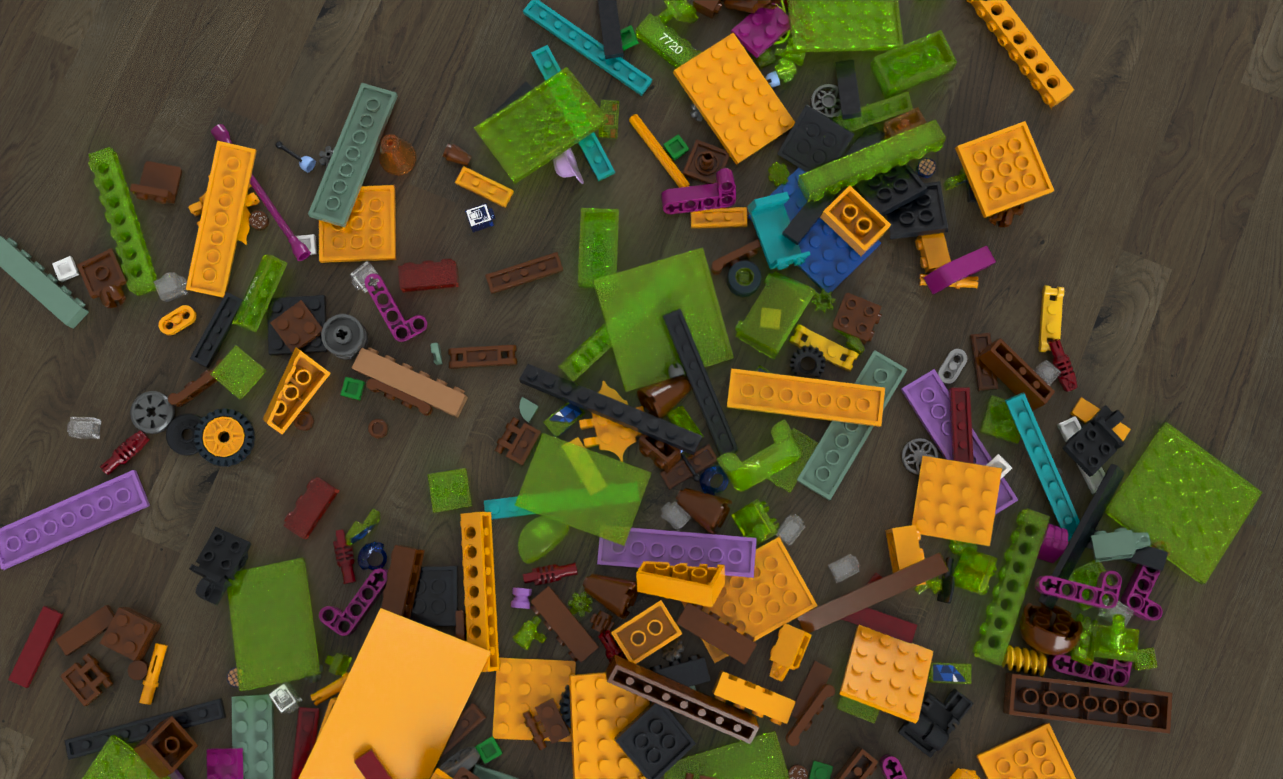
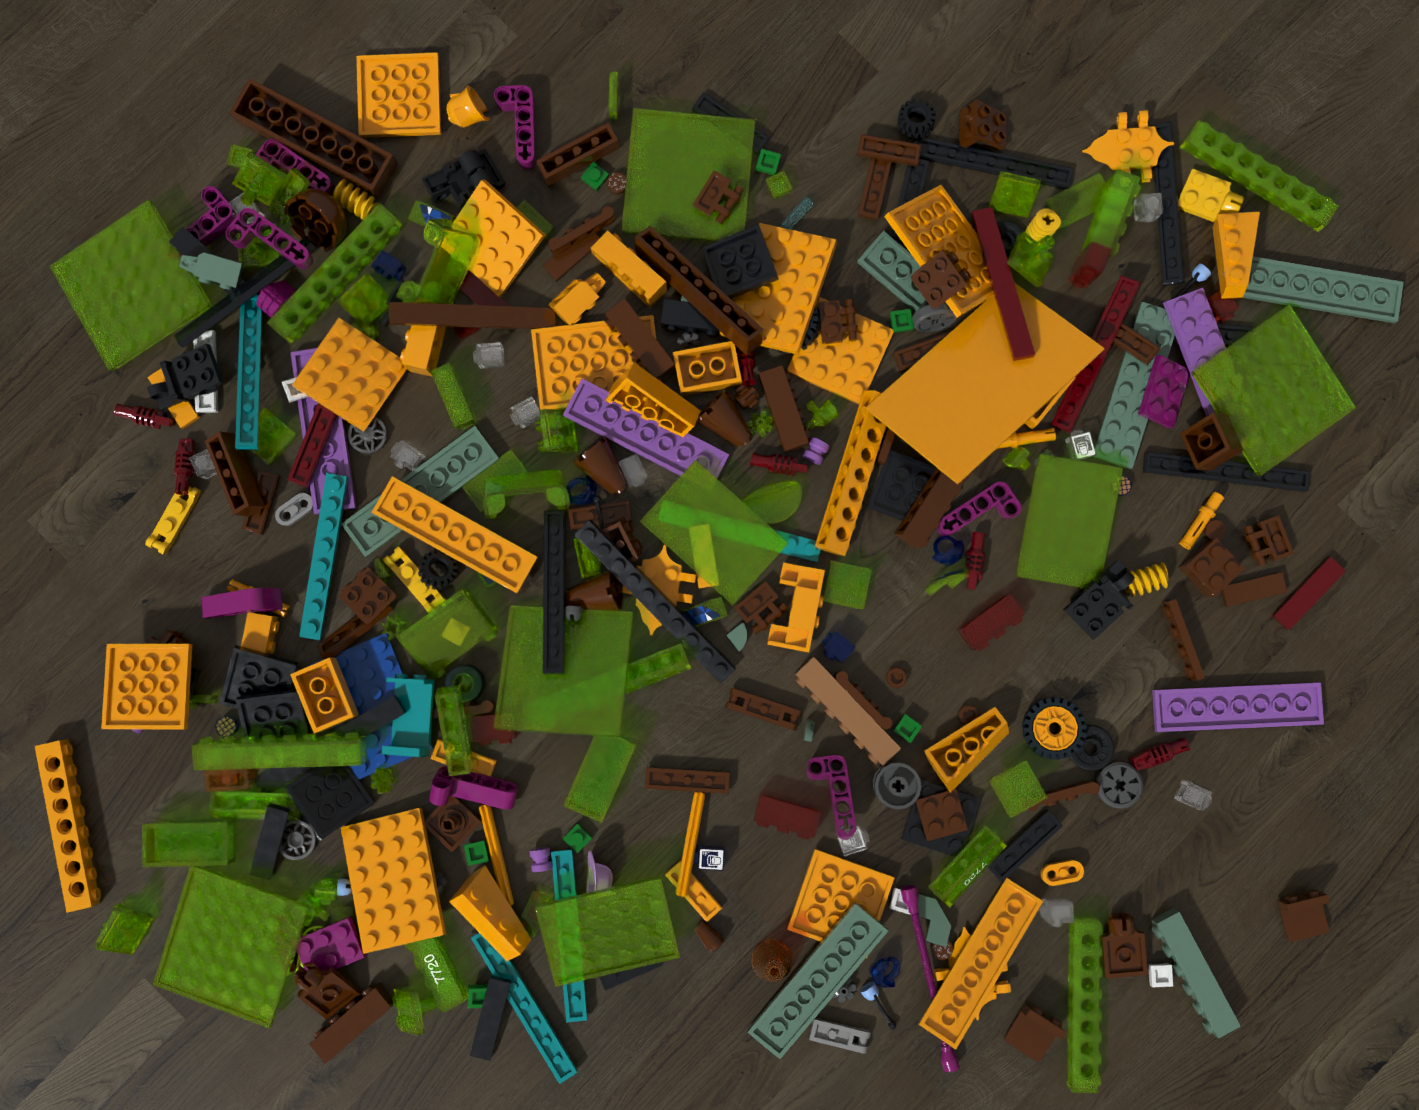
camera: 160 degrees left, 5 degrees up
(141, 564) = (1185, 646): none -> reddish brown plate
(183, 602) = (1148, 577): none -> yellow piece
(267, 236) = (939, 926): none -> sand green tile
(305, 180) = (877, 972): none -> clear blue piece
(319, 119) = (839, 1035): none -> light grey plate
(438, 433) = (837, 647): none -> clear blue brick
(479, 453) = (803, 609): none -> light orange bracket
(501, 222) = (690, 844): none -> light orange axle
(597, 191) = (577, 837): none -> green plate
(620, 162) = (540, 857): none -> medium lavender wheel
(643, 103) = (491, 914): none -> light orange wedge
(711, 245) = (484, 732): none -> clear red brick
(735, 233) = (454, 730): none -> clear neon green brick
(859, 518) = (453, 397): none -> clear neon green brick
(861, 277) = (347, 635): none -> reddish brown plate
(877, 450) = (406, 456): none -> clear brick
(909, 337) = (323, 556): none -> teal plate
(914, 644) = (447, 265): none -> clear neon green windscreen
(966, 611) = (389, 267): none -> clear blue brick
(1117, 394) = (143, 416): none -> dark red hinge

